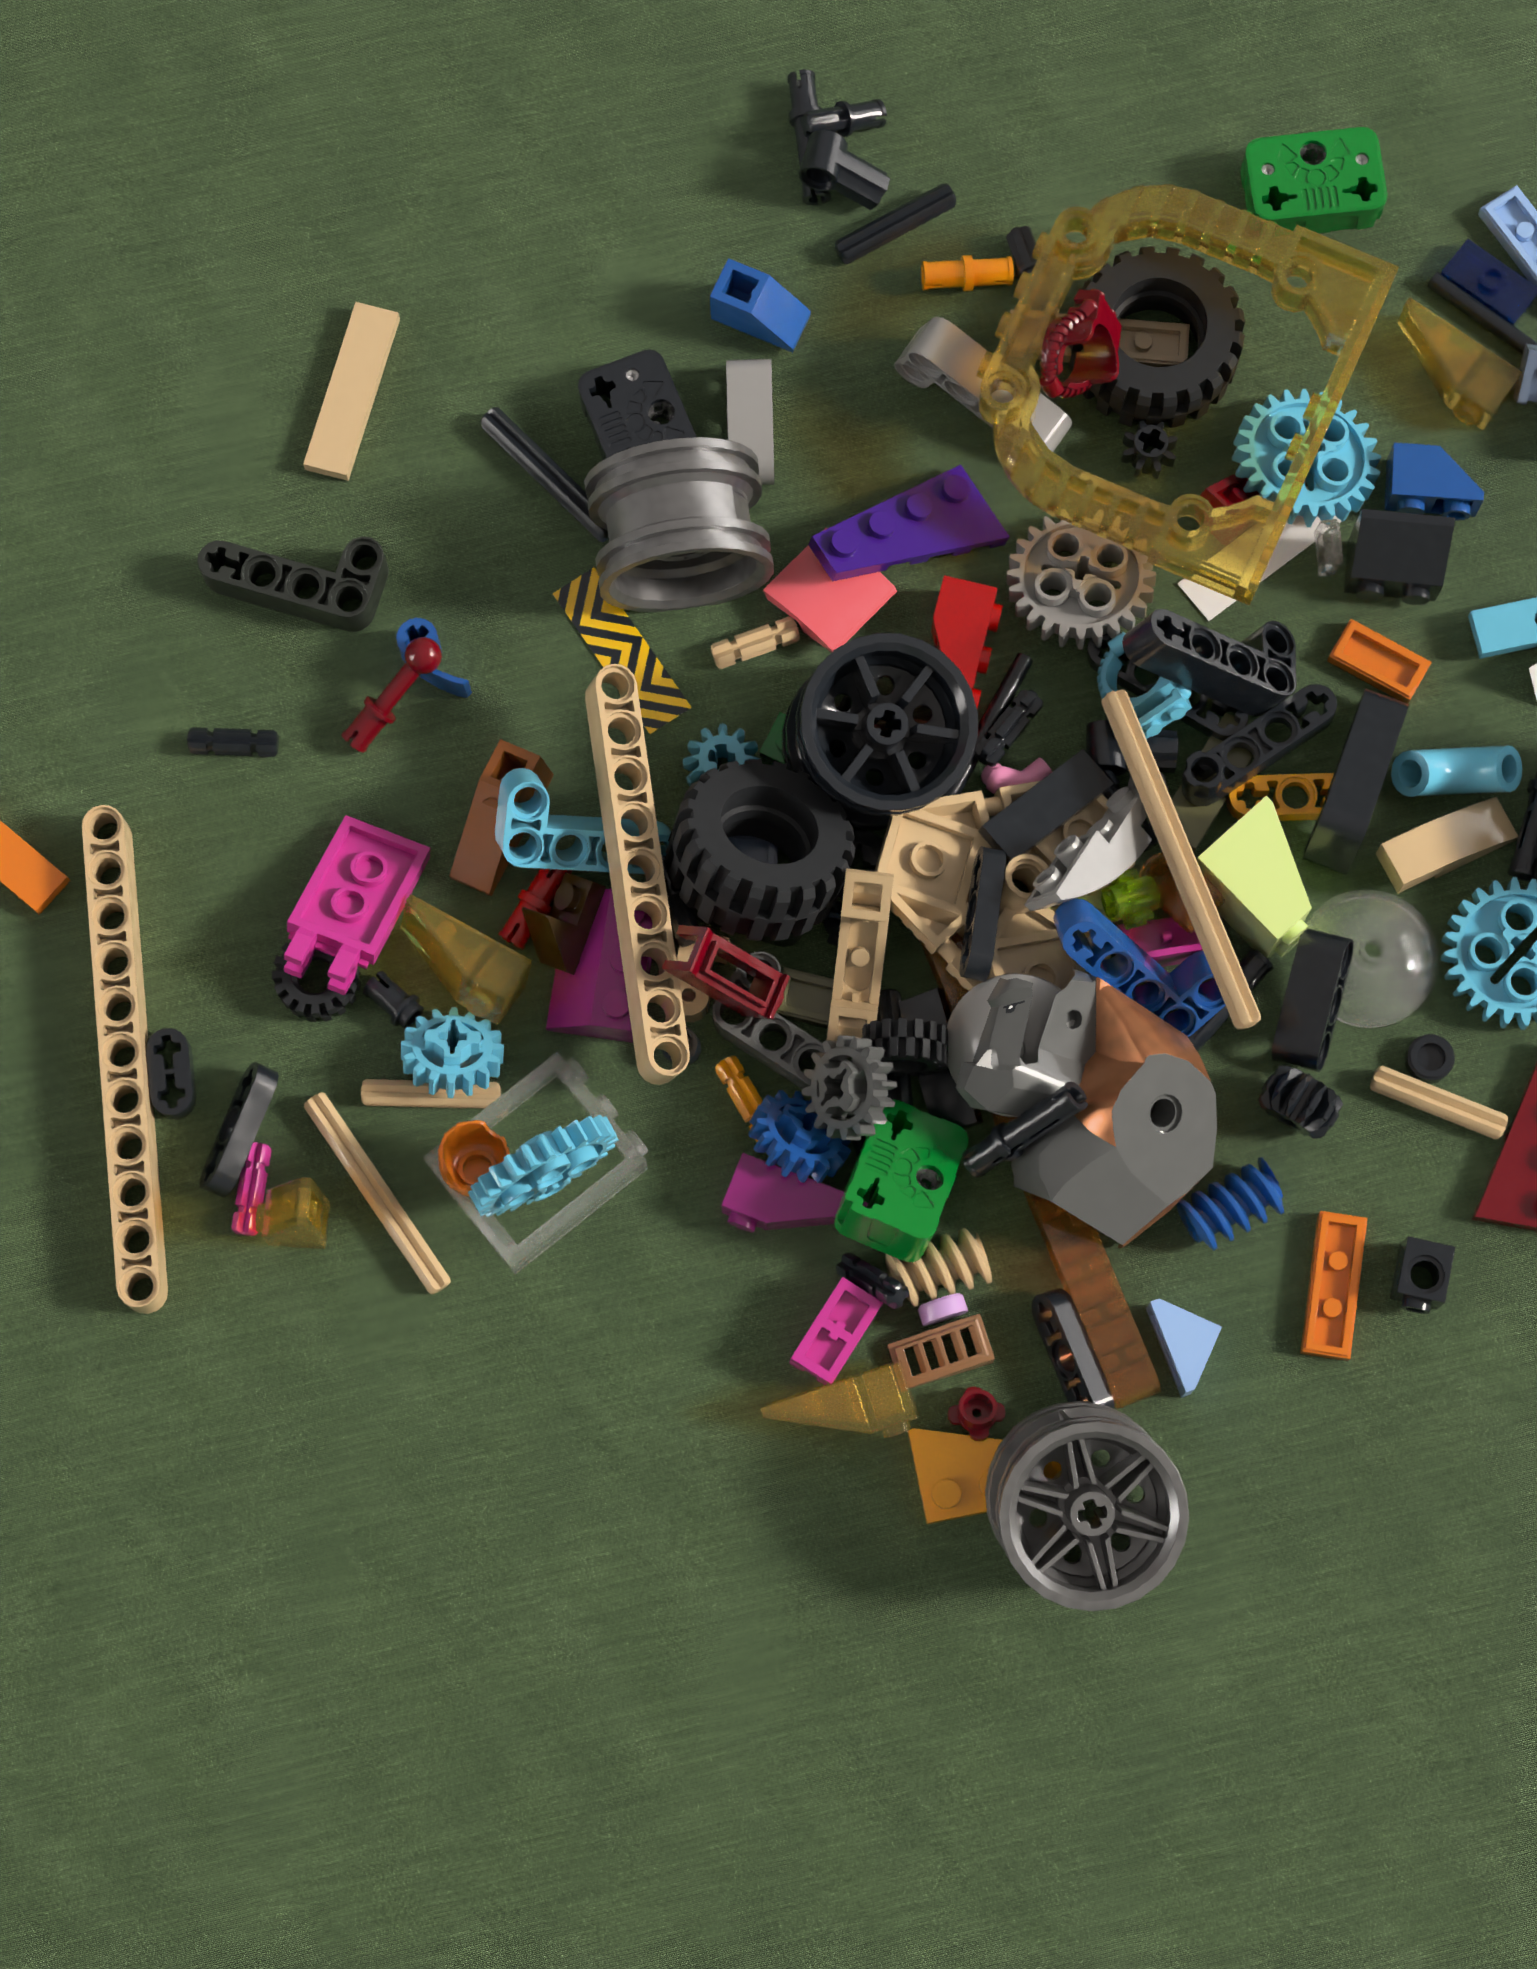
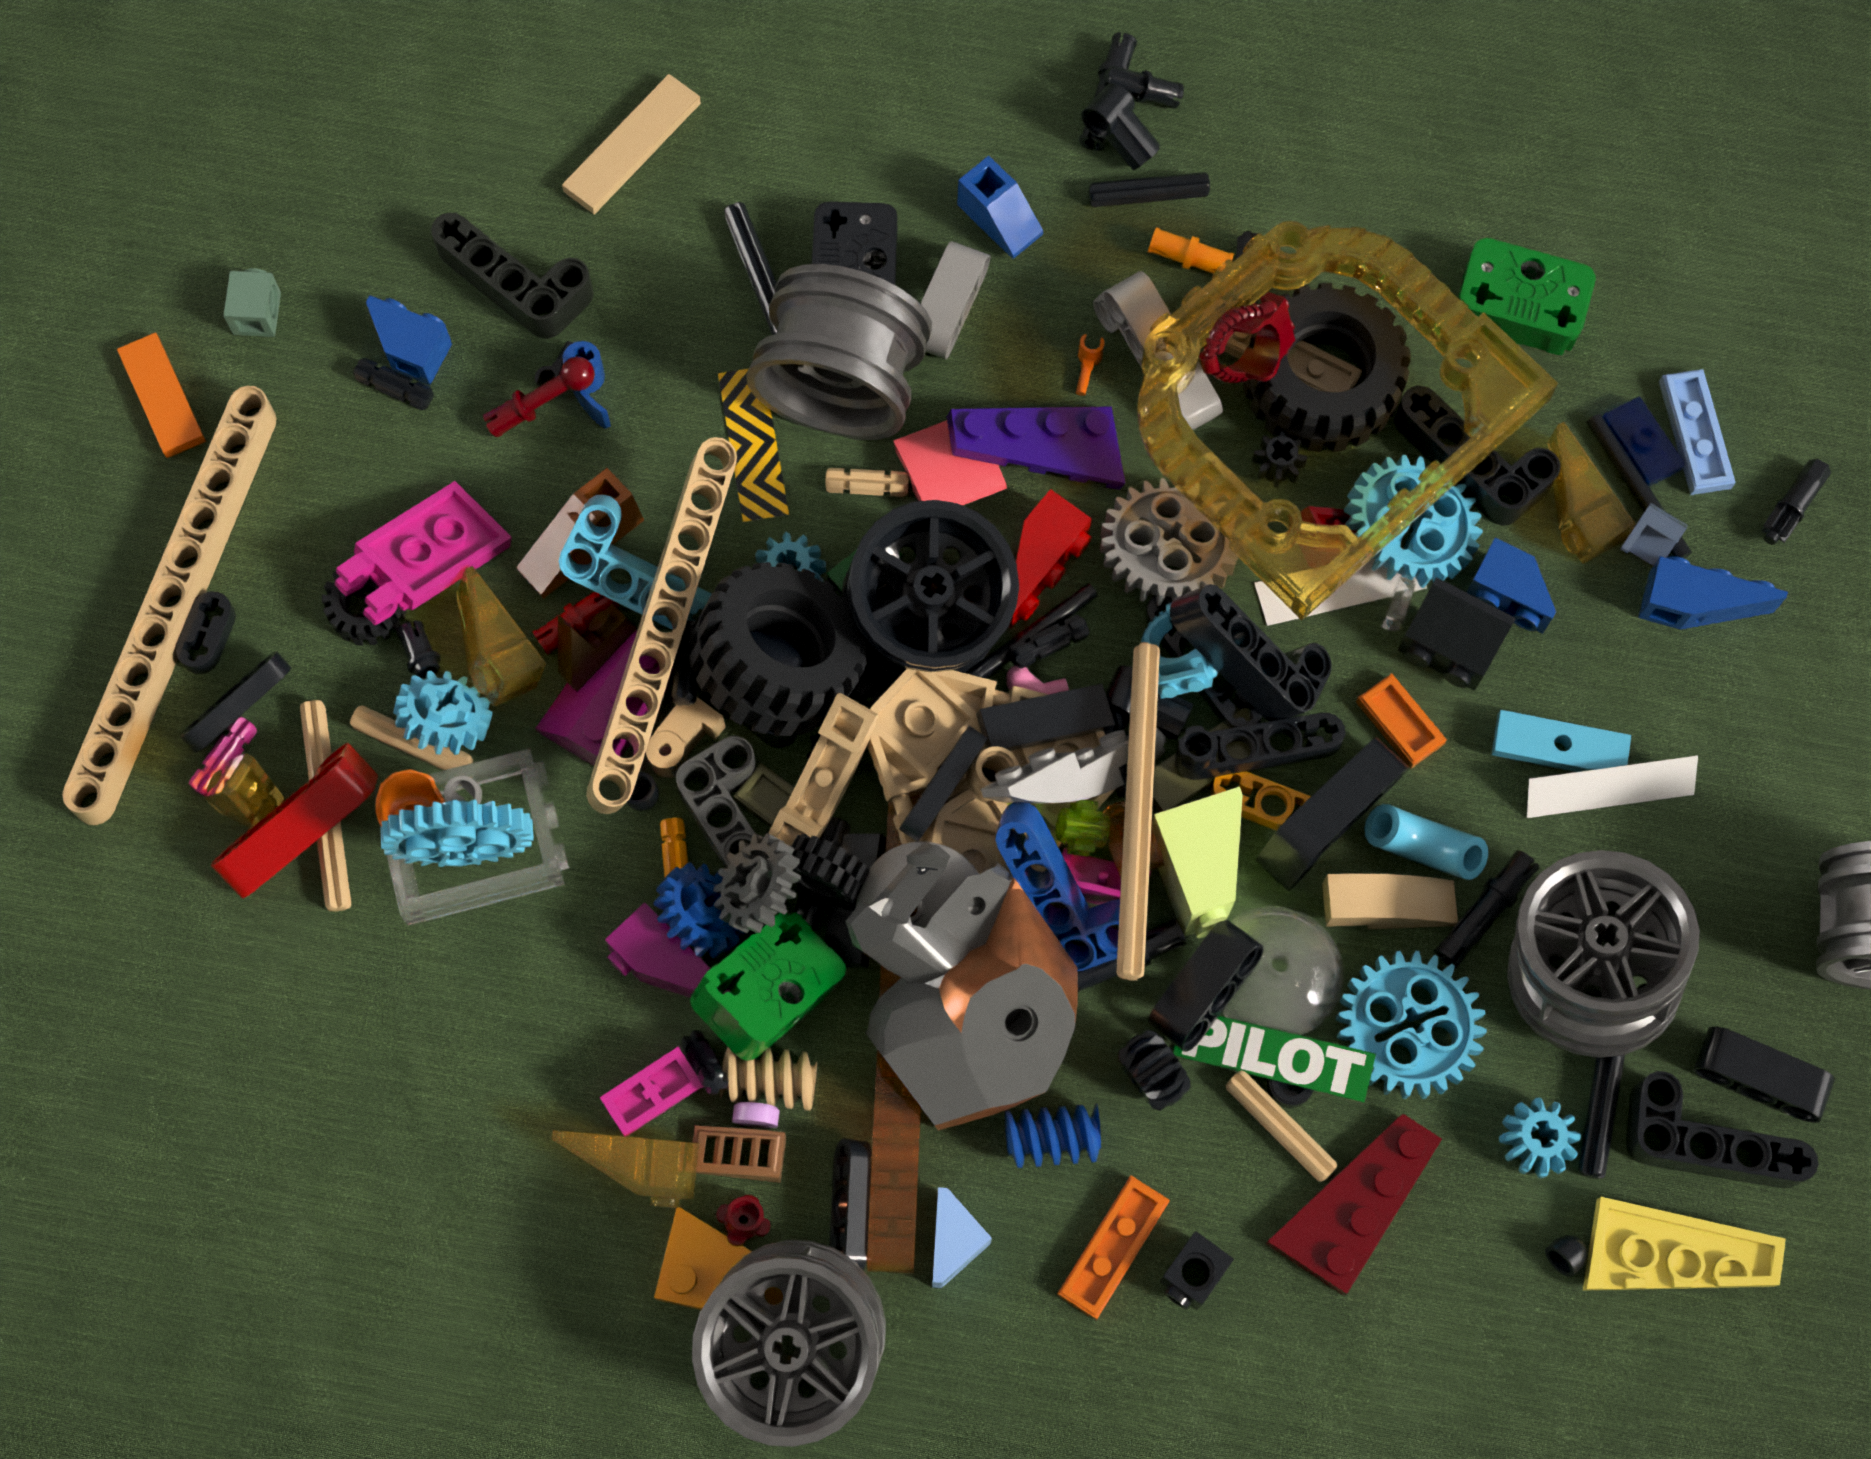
camera: 20 degrees right, 5 degrees down
(49, 719) = (252, 303): none -> sand green brick
(228, 691) = (410, 340): none -> blue slope
(366, 1221) = (299, 821): none -> red beam
(389, 654) = (554, 370): none -> black hand
(515, 1134) = (467, 783): none -> light grey hinge
(766, 988) = (728, 772): dark red window -> none
(915, 425) = (1088, 359): none -> orange hand
(1011, 1138) = (876, 987): black pin -> none
(1368, 376) = (1424, 408): none -> black beam
(1415, 1036) = (1285, 1058): none -> sticker

